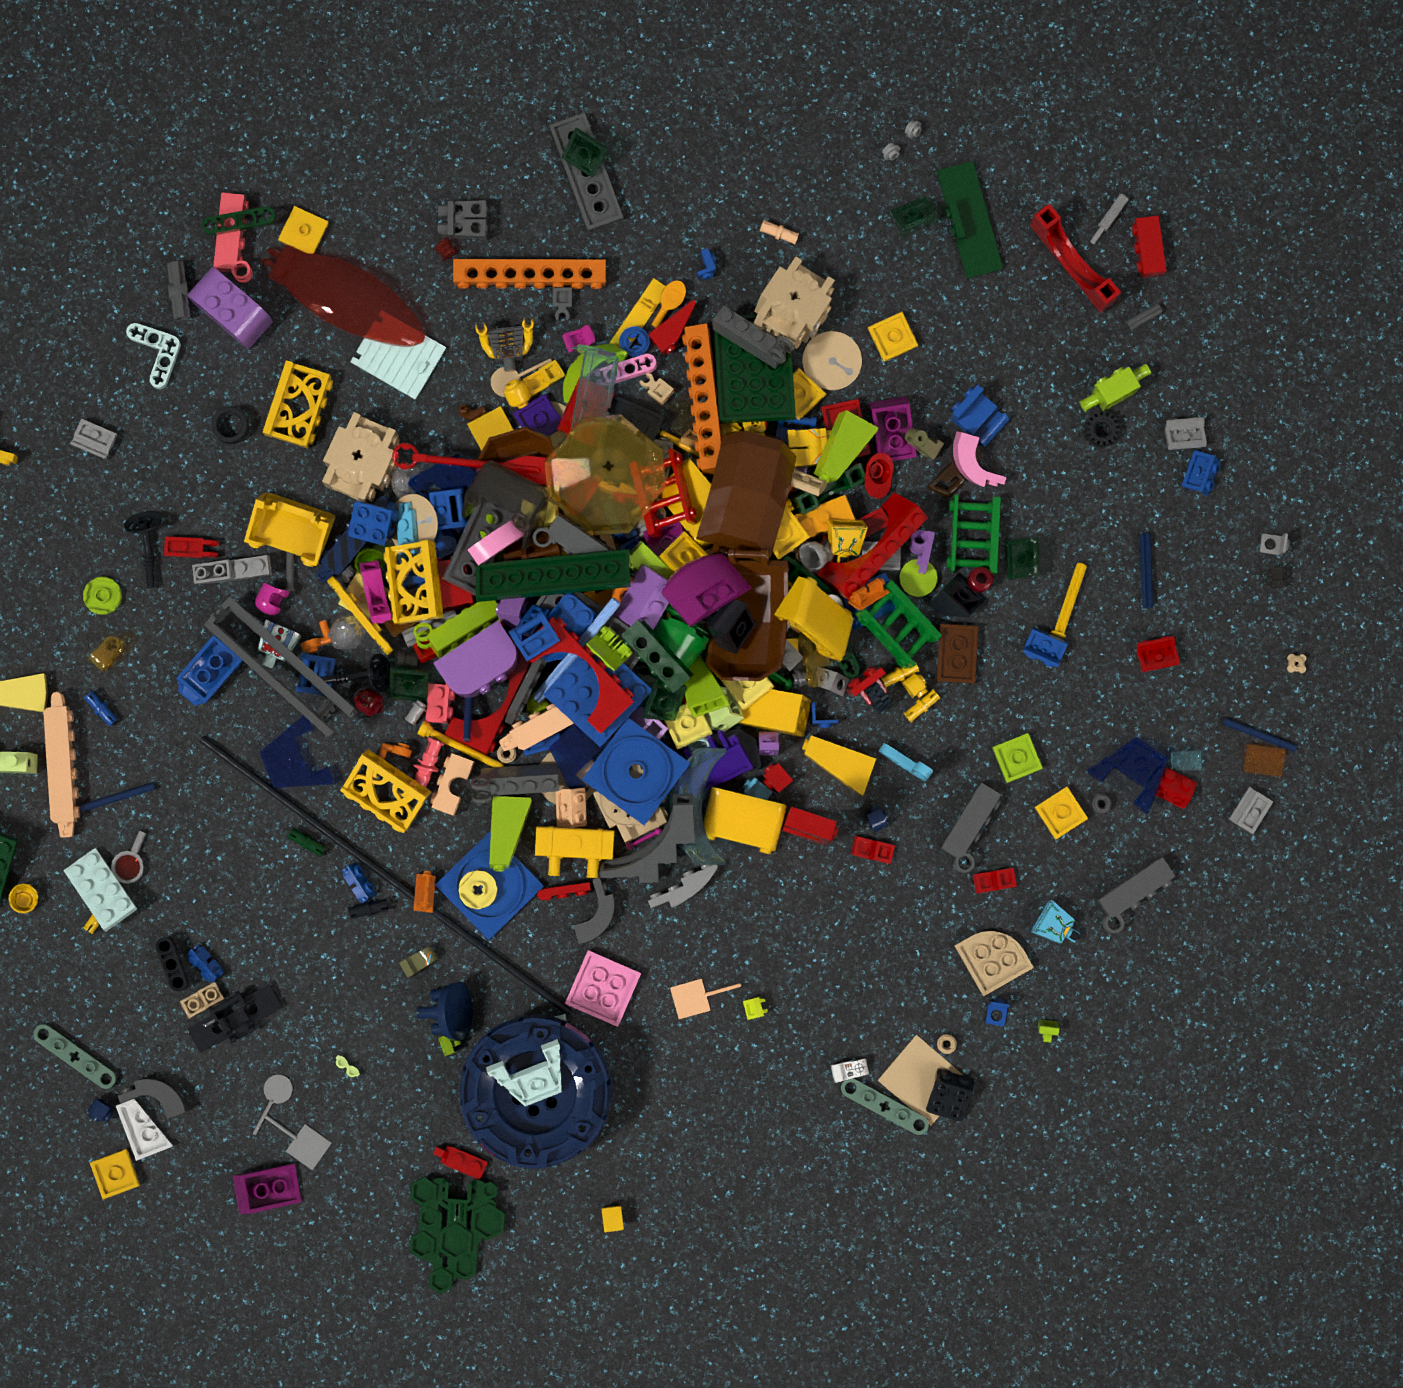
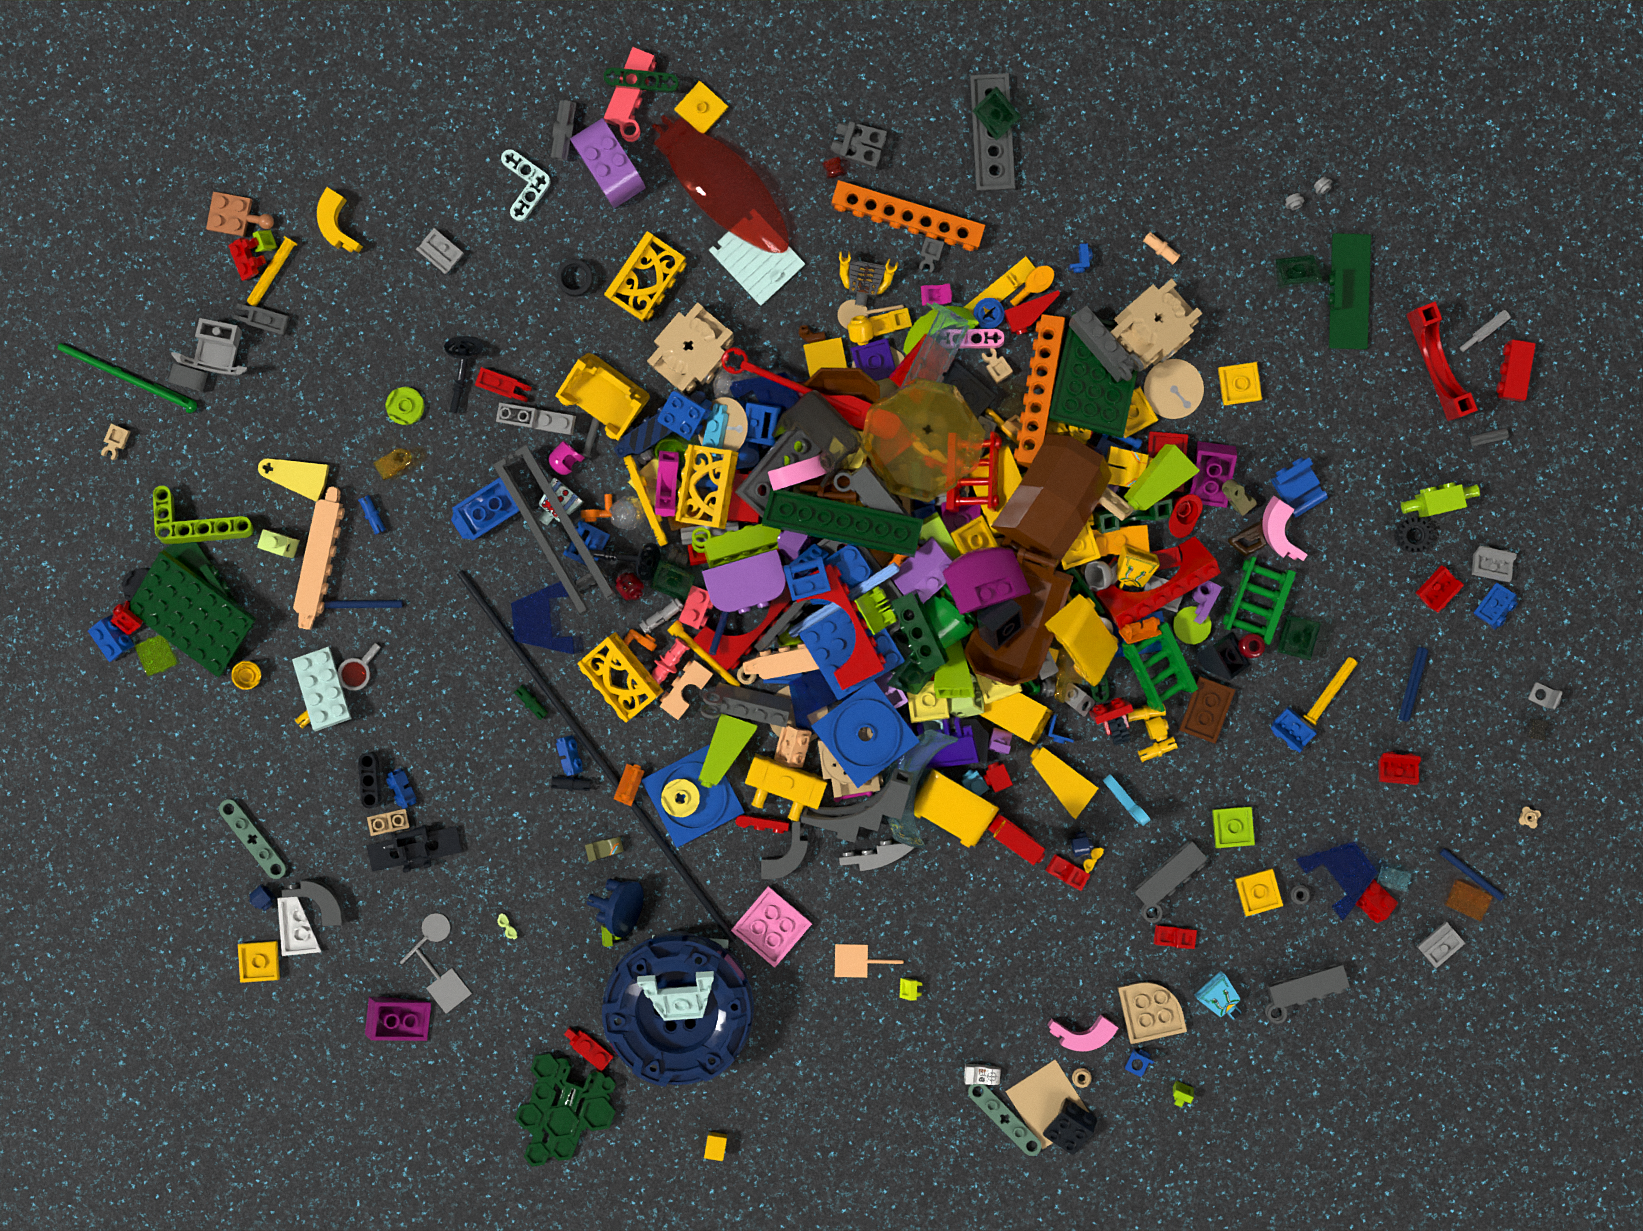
camera: 20 degrees right, 5 degrees up
(400, 731) = (651, 622): none -> light grey pin
(894, 823) = (1089, 864): none -> yellow piece
(941, 1005) = (1087, 1040): none -> bright pink arch
(1141, 473) = (1439, 589): none -> red bracket

